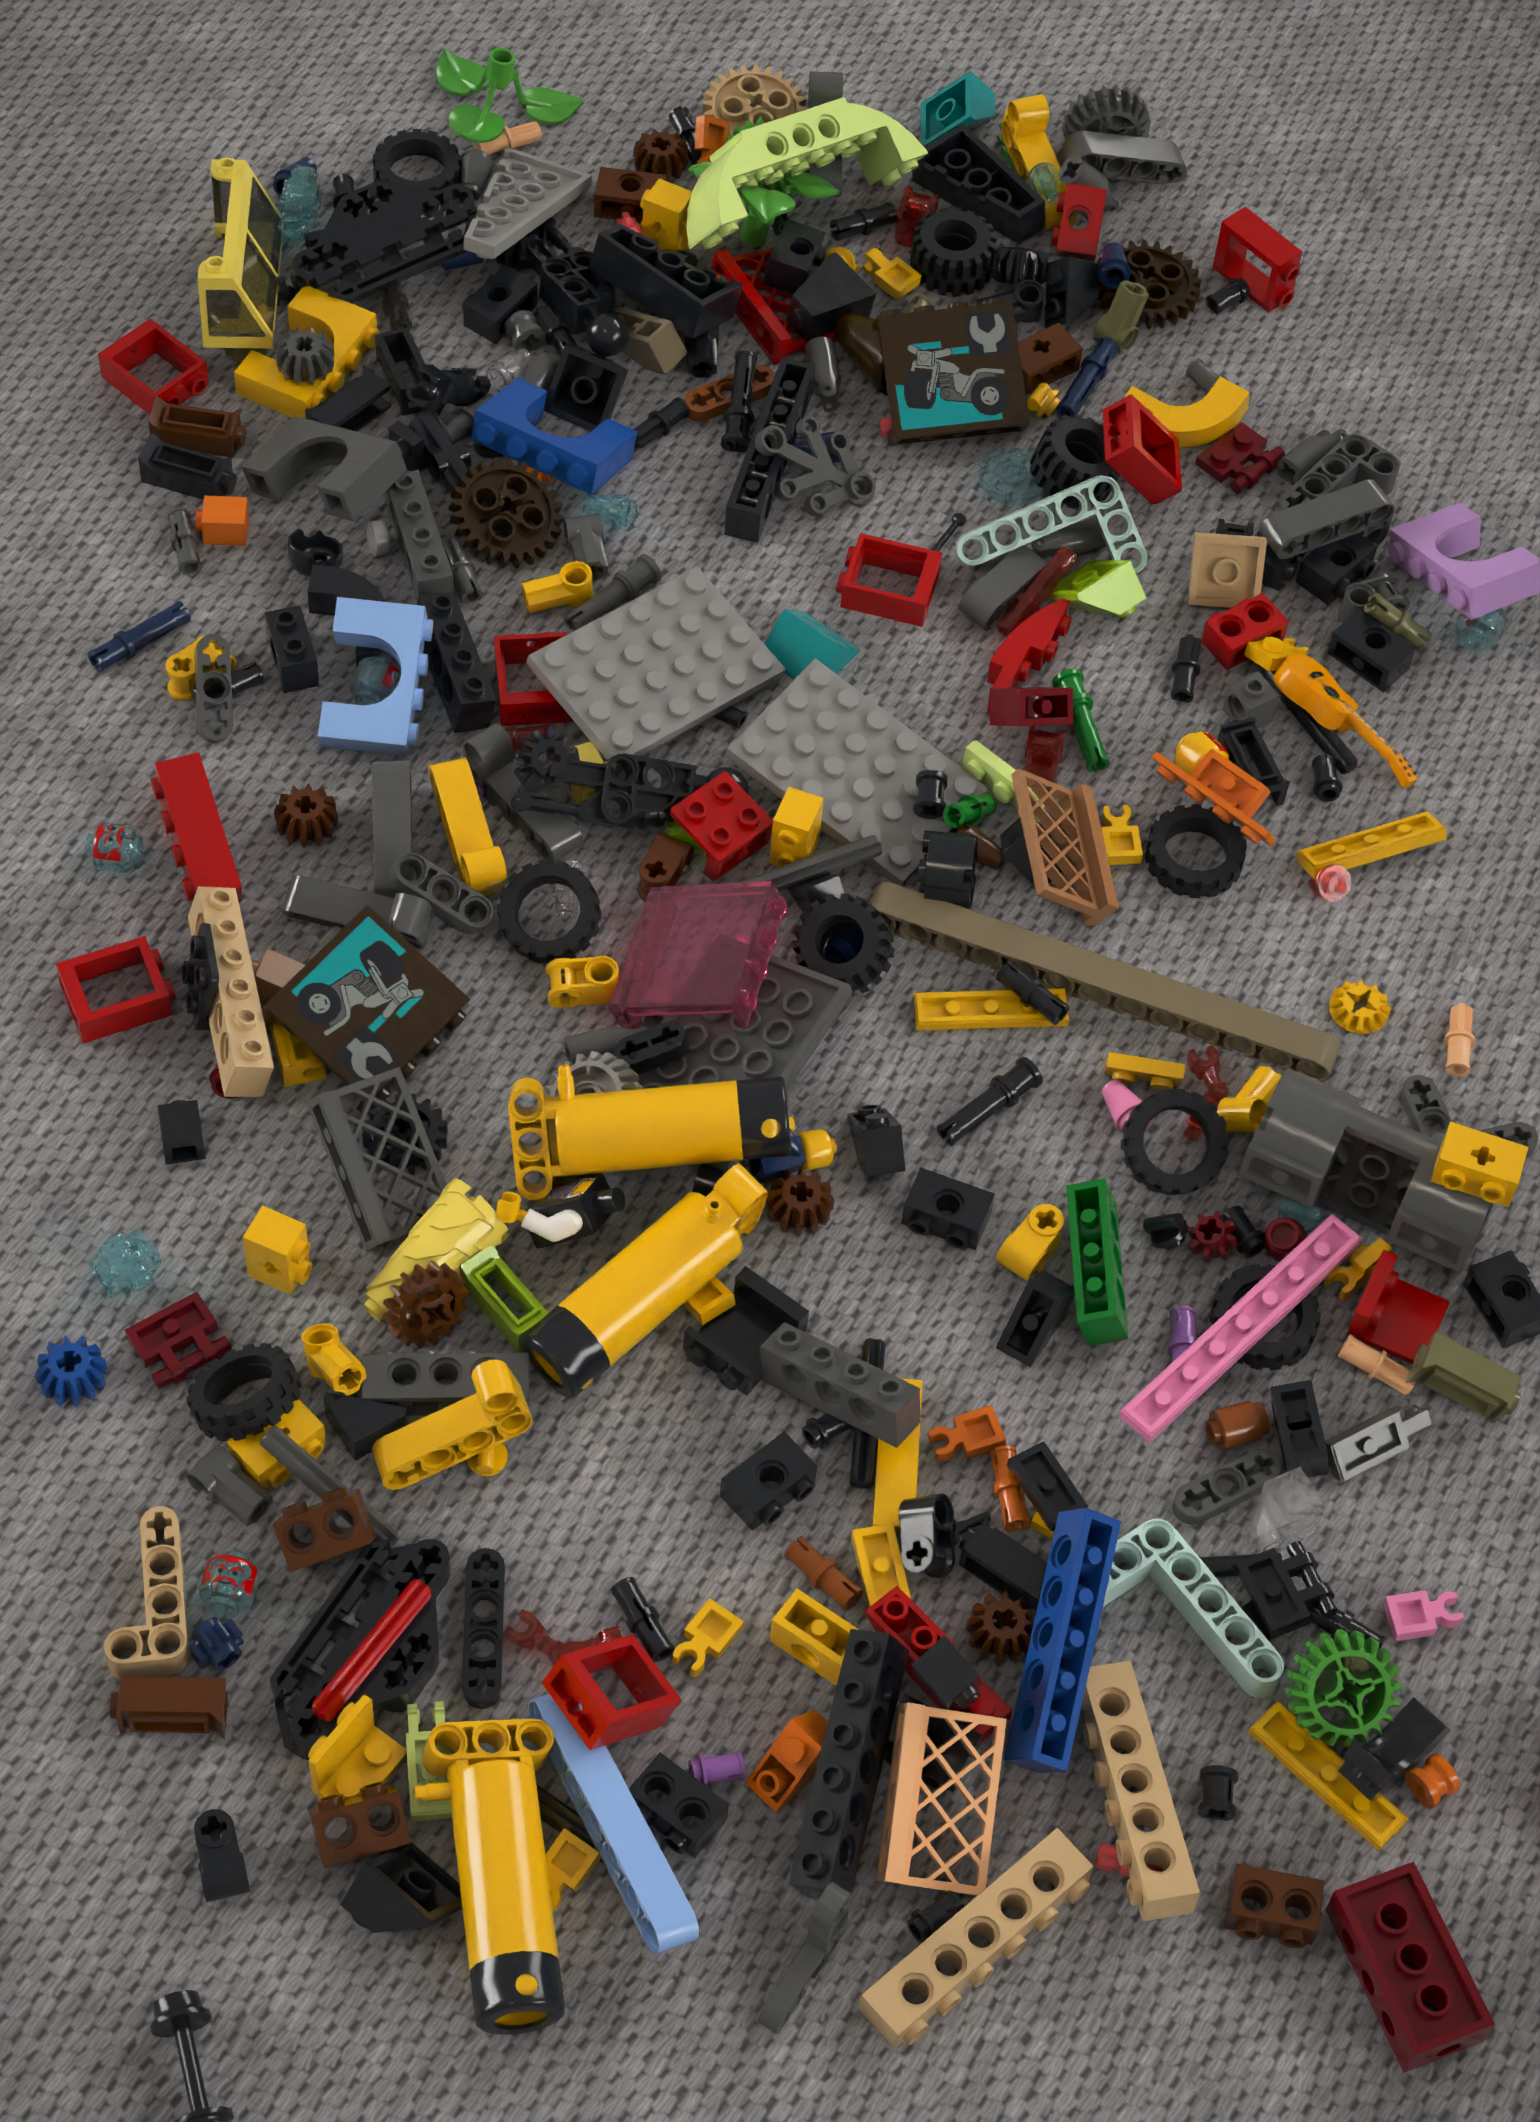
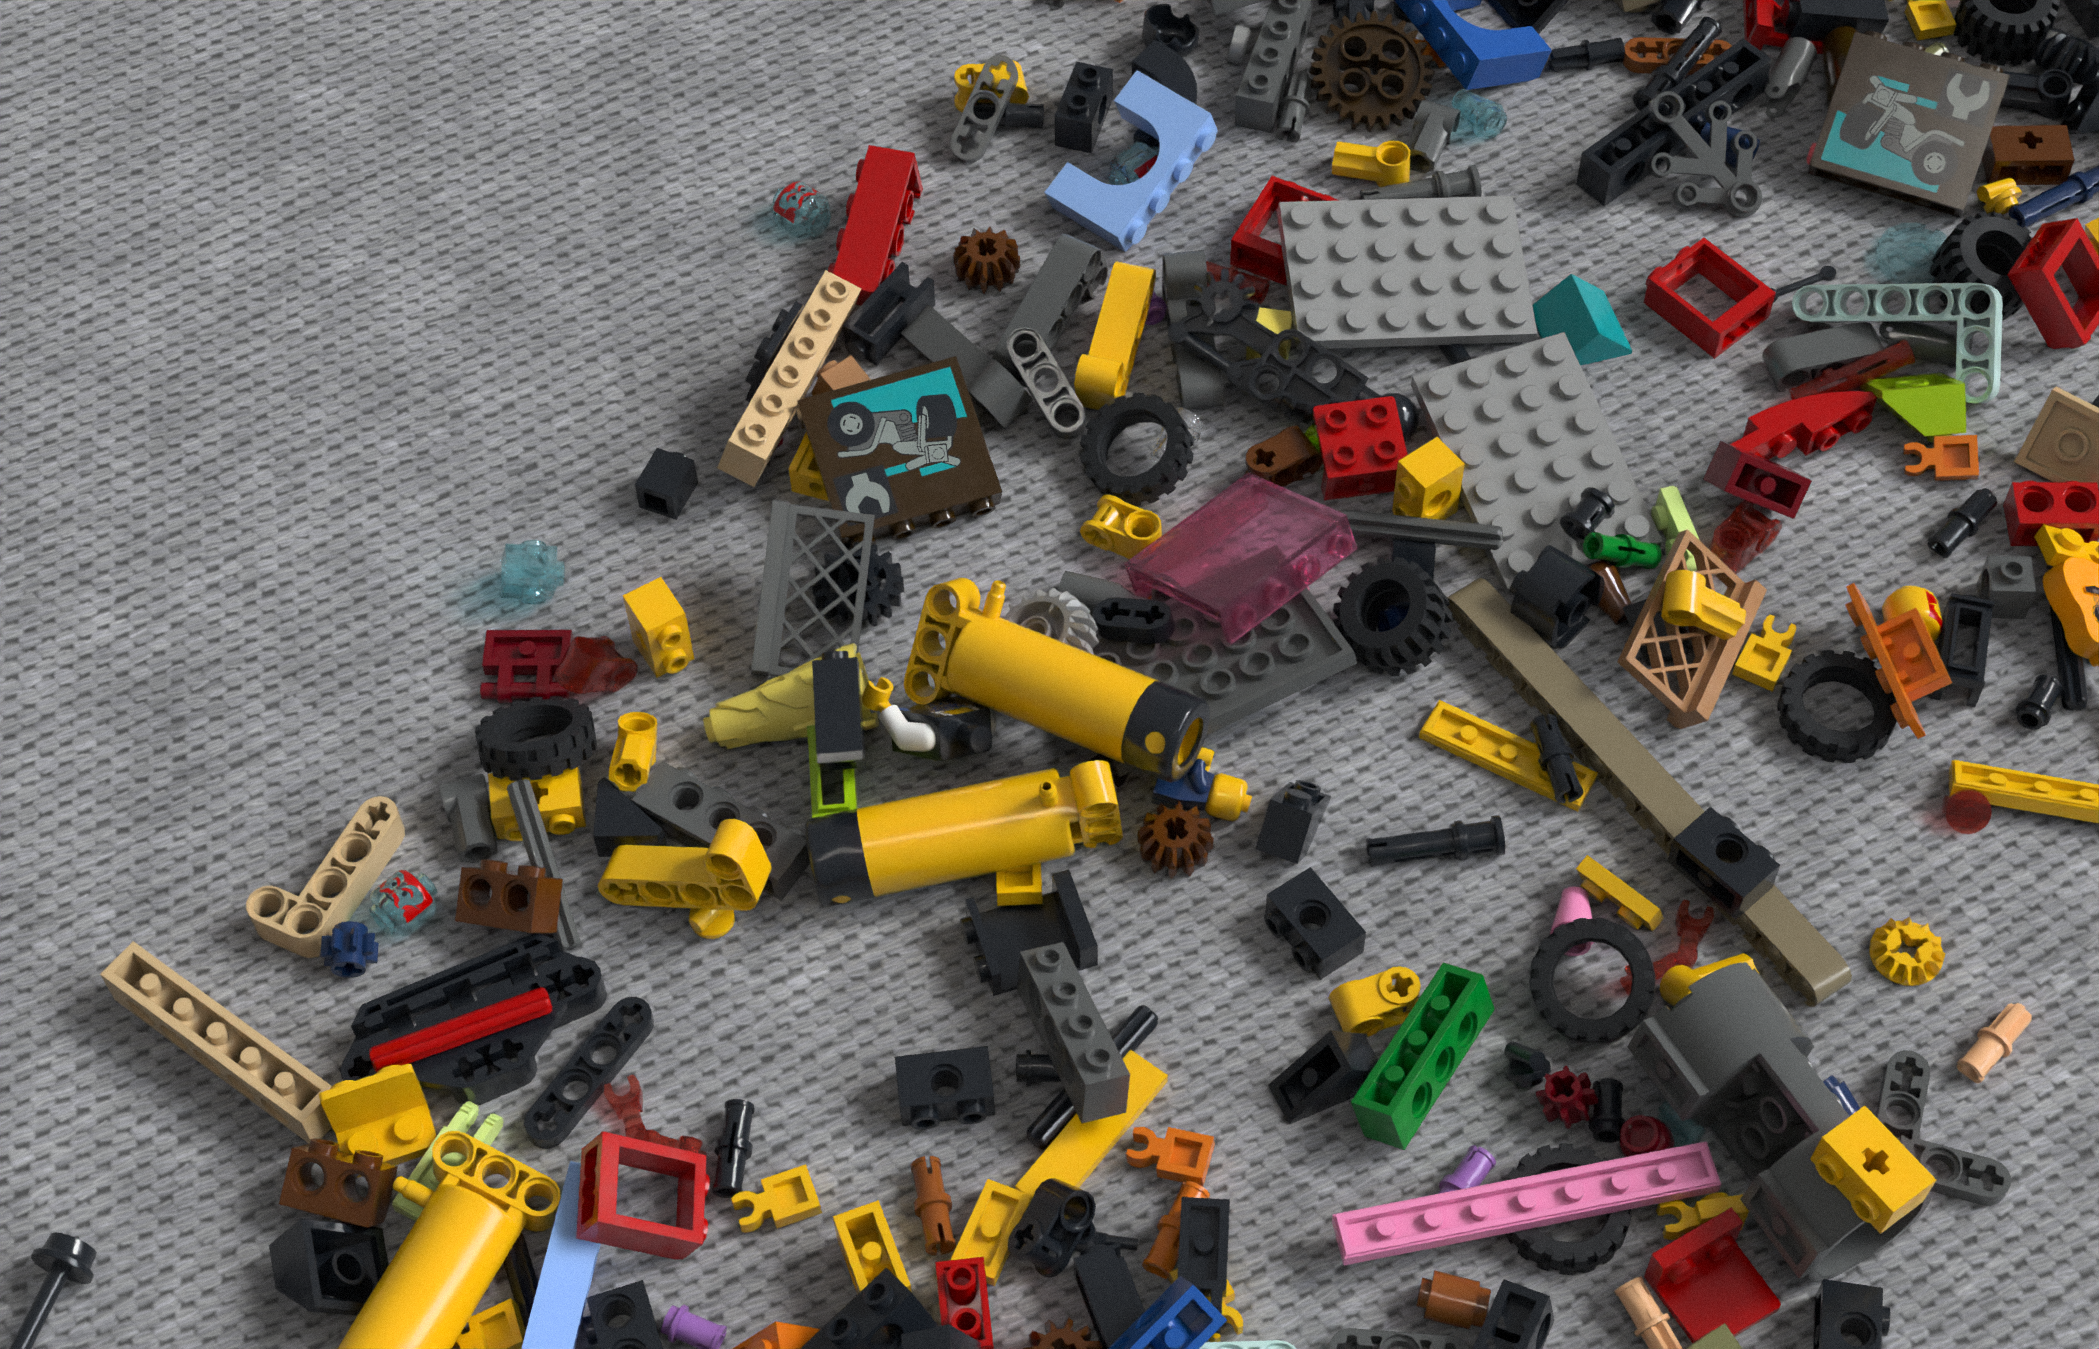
camera: 40 degrees right, 0 degrees up
(62, 1384) = (417, 642): blue gear -> none
(123, 1015) = (699, 358): red window -> none
(127, 643) = (962, 38): dark blue pin -> none
(170, 1704) = (273, 981): reddish brown window -> none
(173, 1774) = (219, 1041): none -> tan brick
(221, 1861) = (208, 1141): black piece -> none
(243, 1311) = (594, 666): none -> clear red piece
(261, 935) = (878, 306): none -> black window
(425, 1304) = (749, 746): reddish brown gear -> none
(457, 665) = (1222, 183): black brick -> none
(497, 1237) = (838, 712): none -> black slope
(1065, 823) = (1692, 604): none -> yellow piece
(1082, 719) = (1814, 509): green pin -> none
(1144, 622) = (1950, 458): none -> orange plate
(1193, 1014) = (1730, 885): none -> black brick

